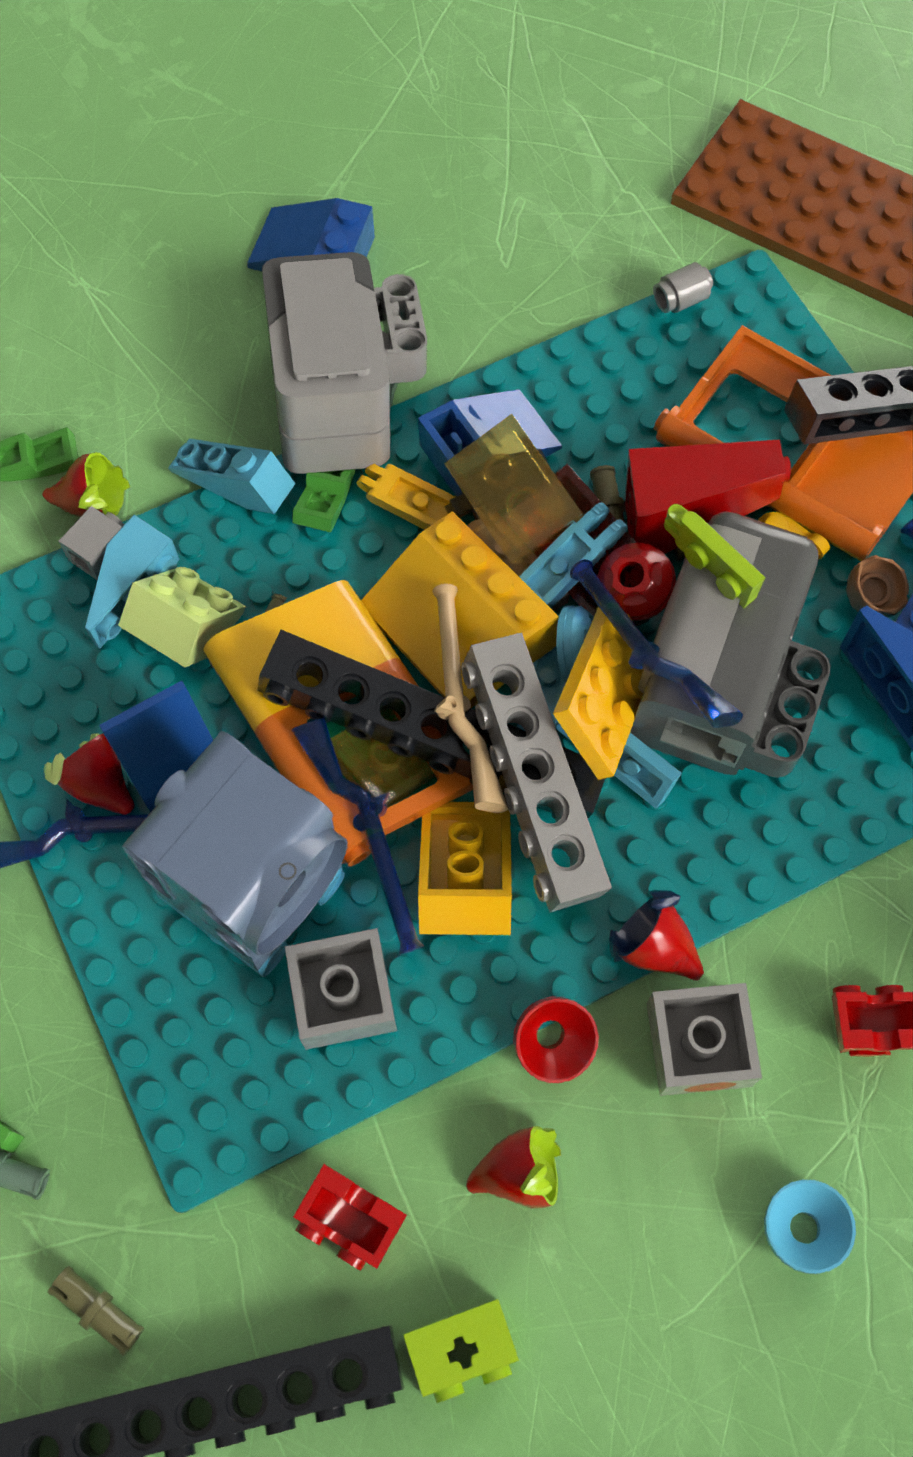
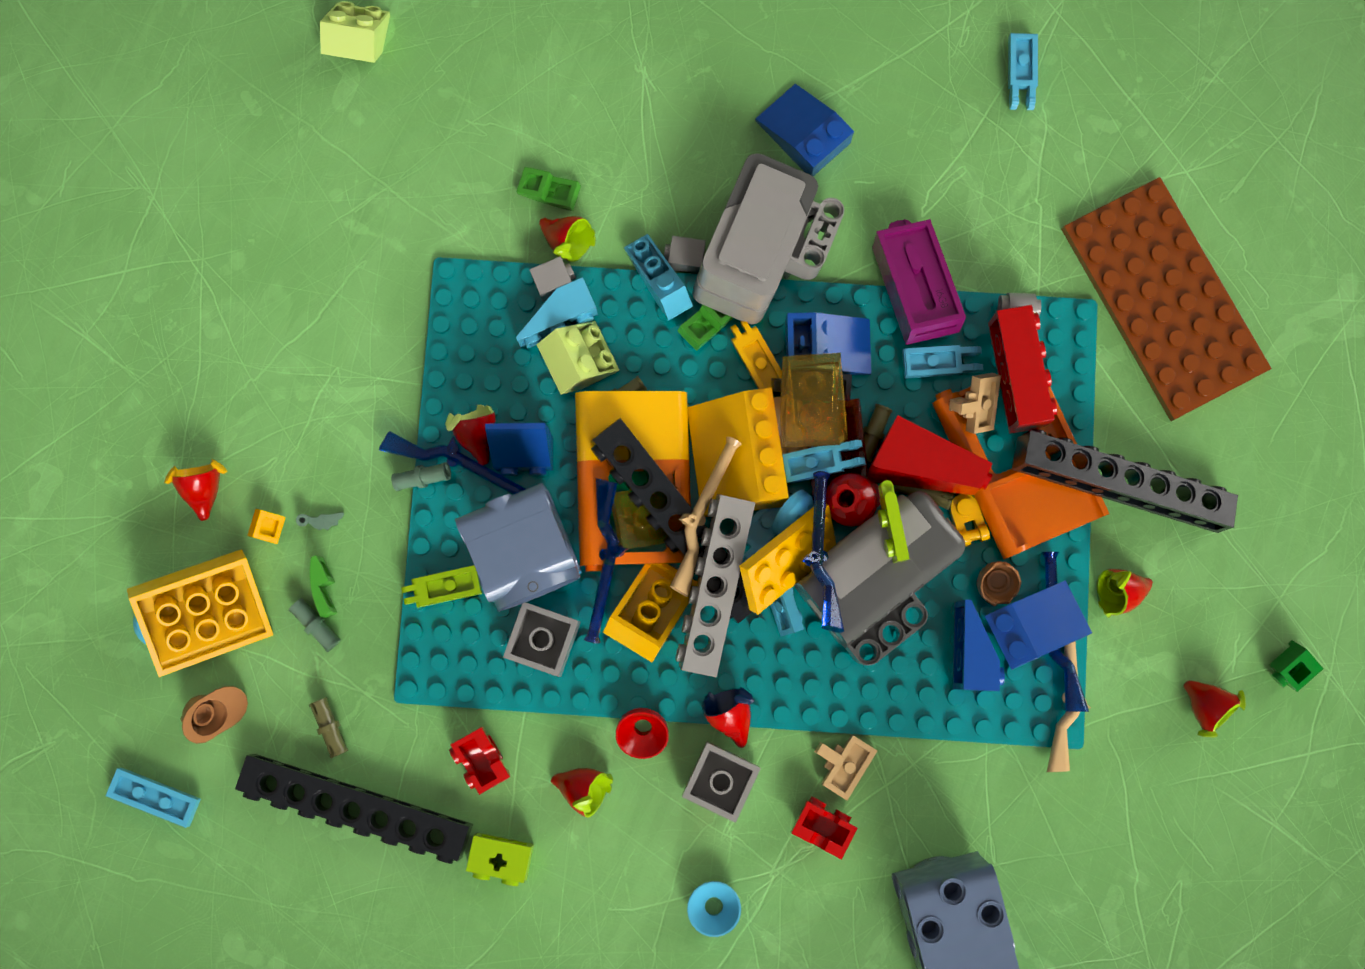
camera: 30 degrees right, 15 degrees up
(49, 876) = (421, 476): none -> sand green pin
(160, 1004) = (443, 587): none -> lime hinge
(252, 429) = (685, 254): none -> light grey brick
(520, 74) = (1022, 68): none -> medium azure hinge
(551, 317) = (918, 281): none -> magenta piece
(633, 390) = (939, 361): none -> medium azure hinge
(712, 401) = (979, 403): none -> tan hinge
(736, 330) = (1022, 369): none -> red brick
(847, 923) = (845, 765): none -> tan hinge

